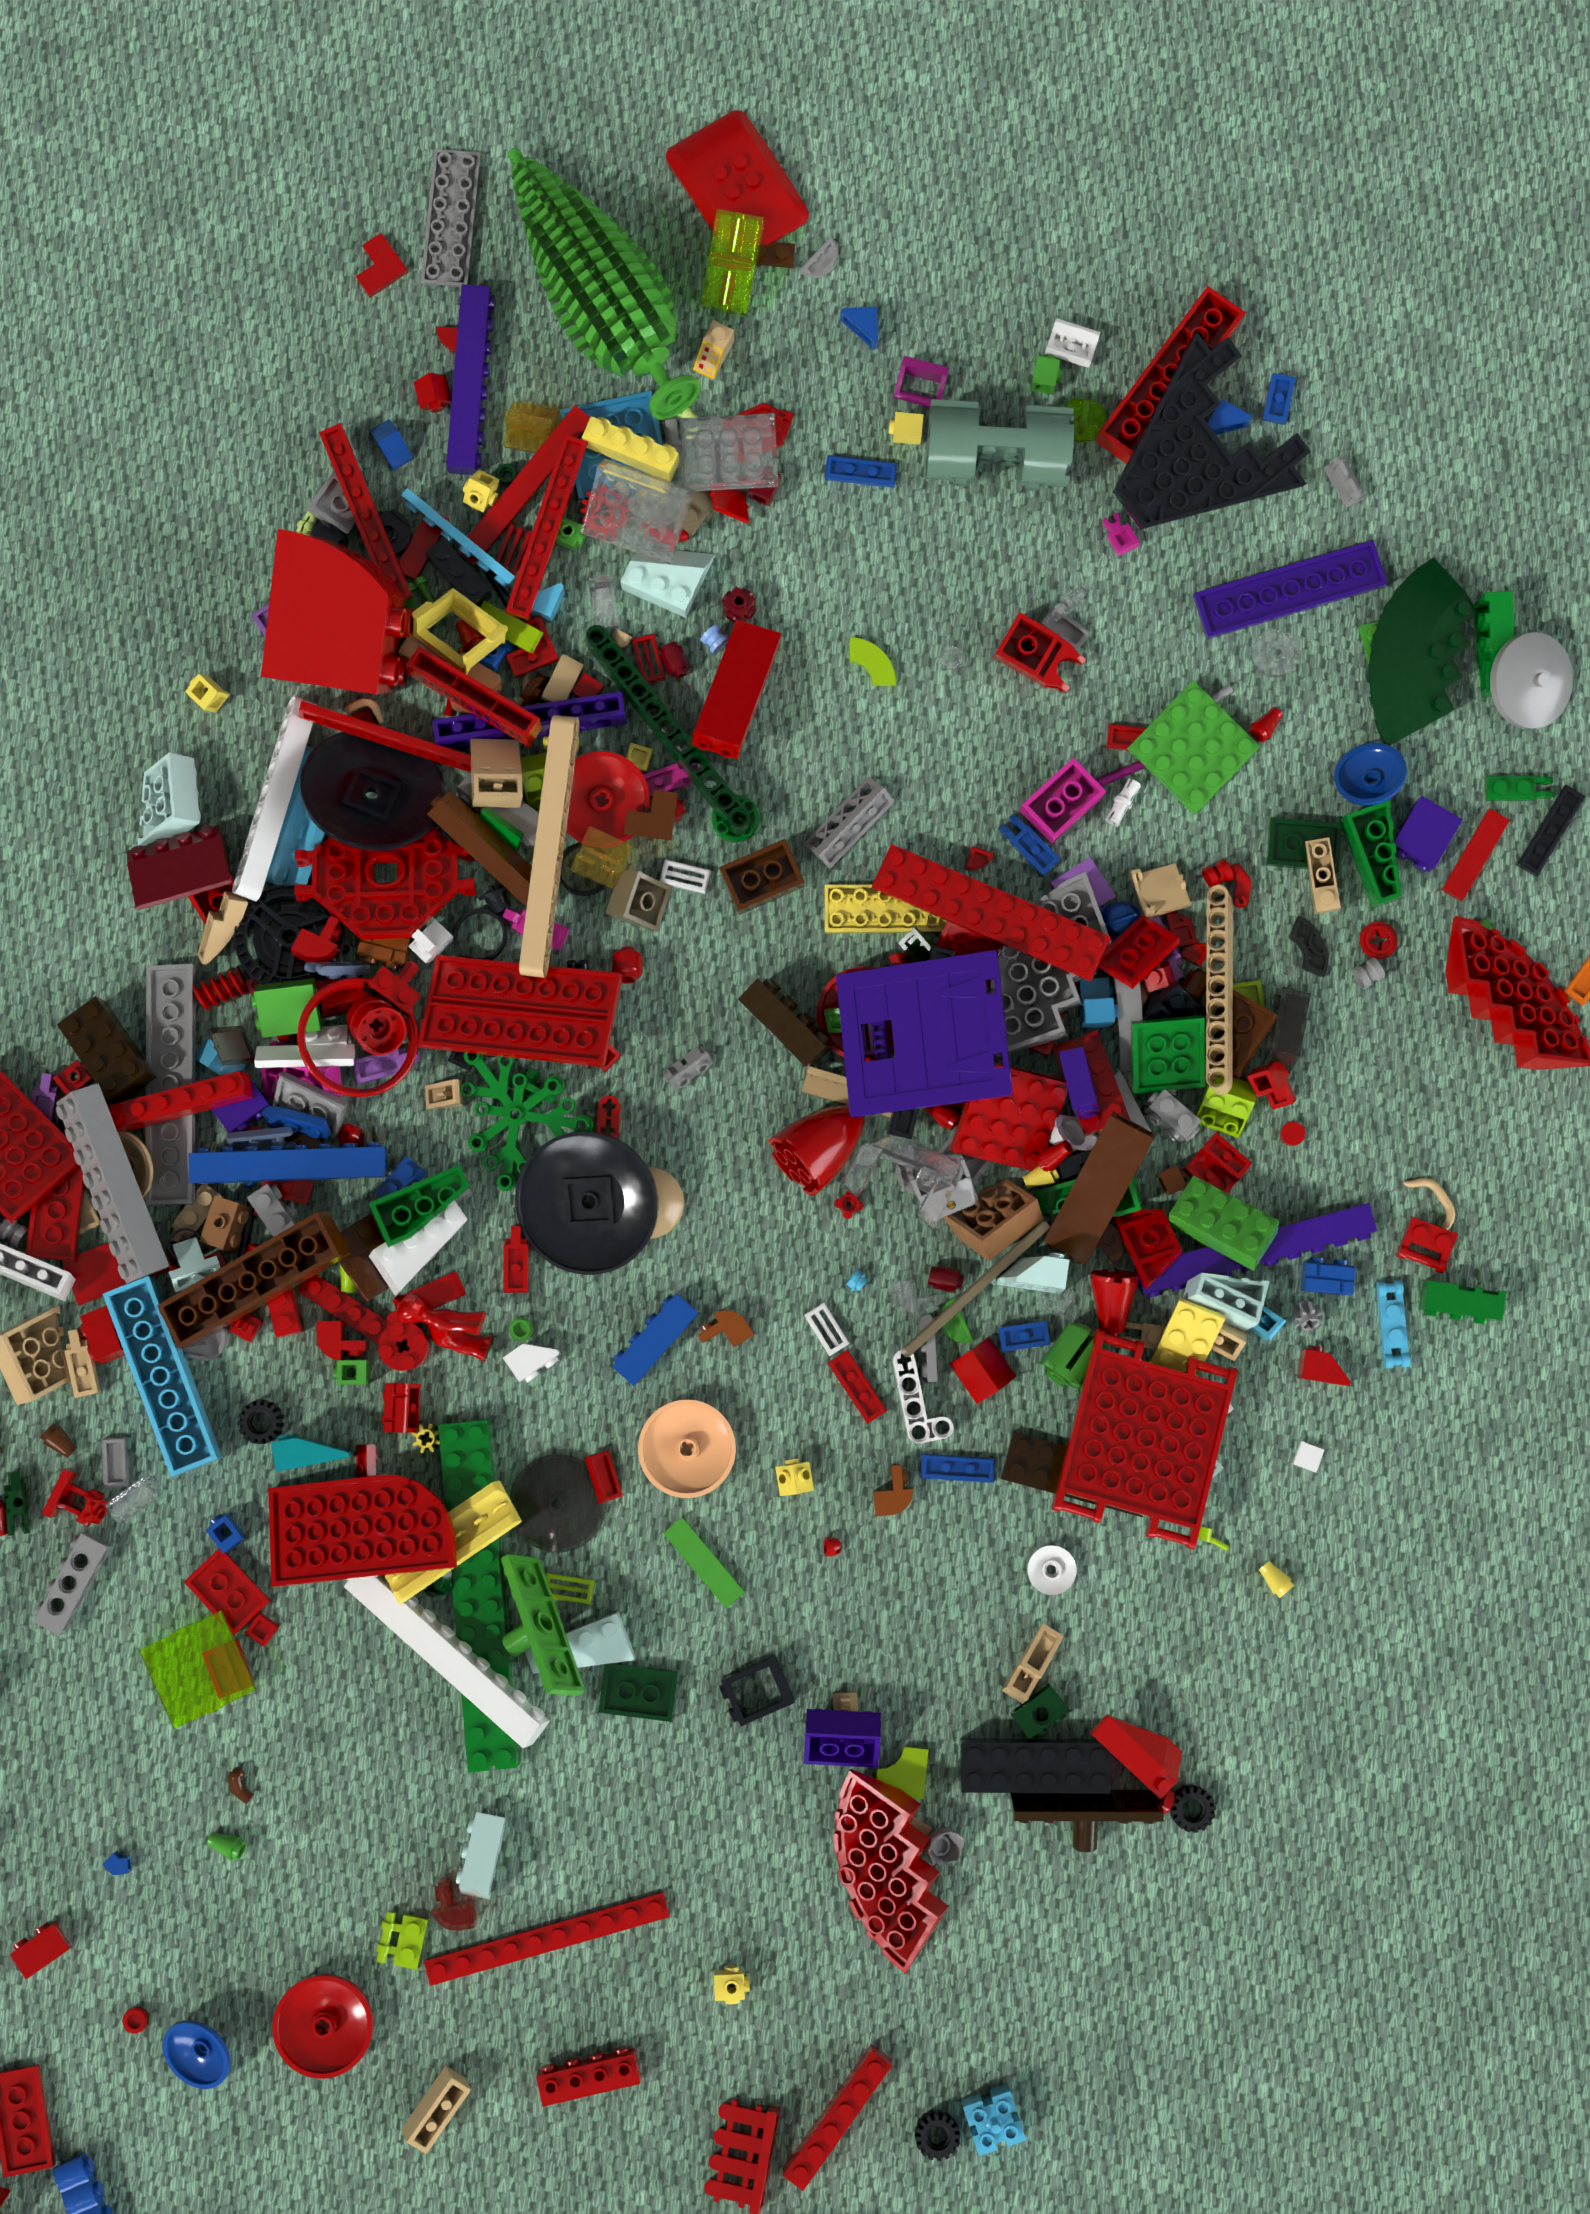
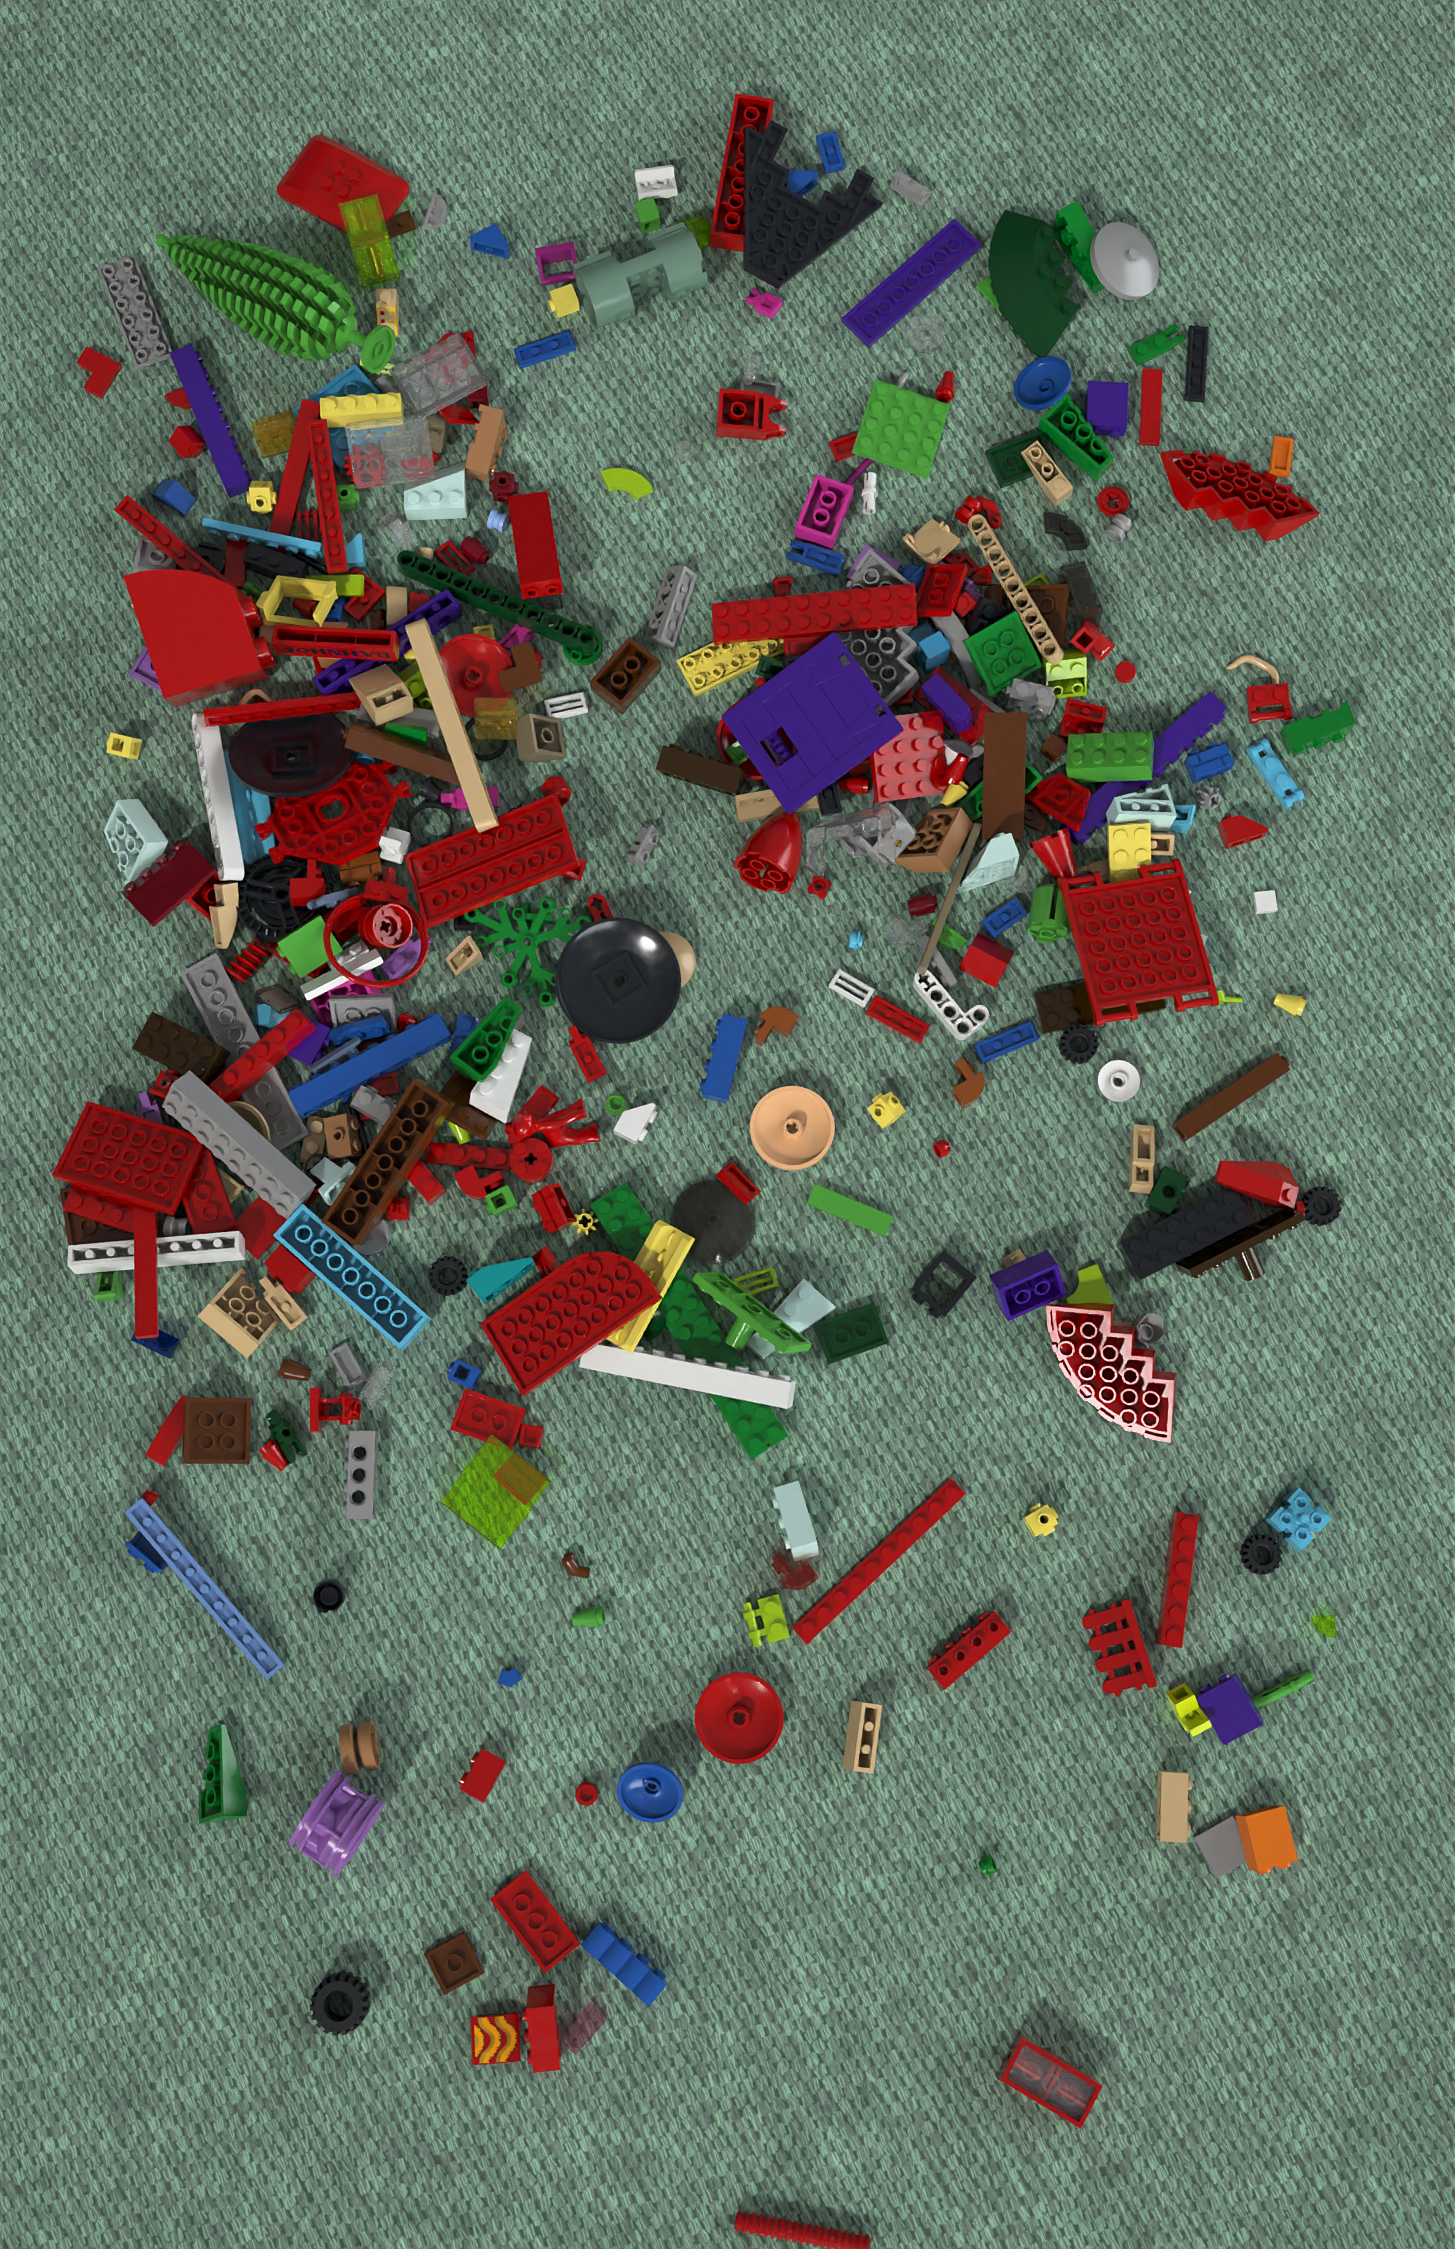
camera: 25 degrees left, 5 degrees down
(506, 468) = (271, 473): dark green plate -> none
(744, 550) = (486, 444): none -> medium nougat wedge
(1019, 1499) = (1087, 1035): none -> black tyre
(1161, 1647) = (1231, 1097): none -> reddish brown brick

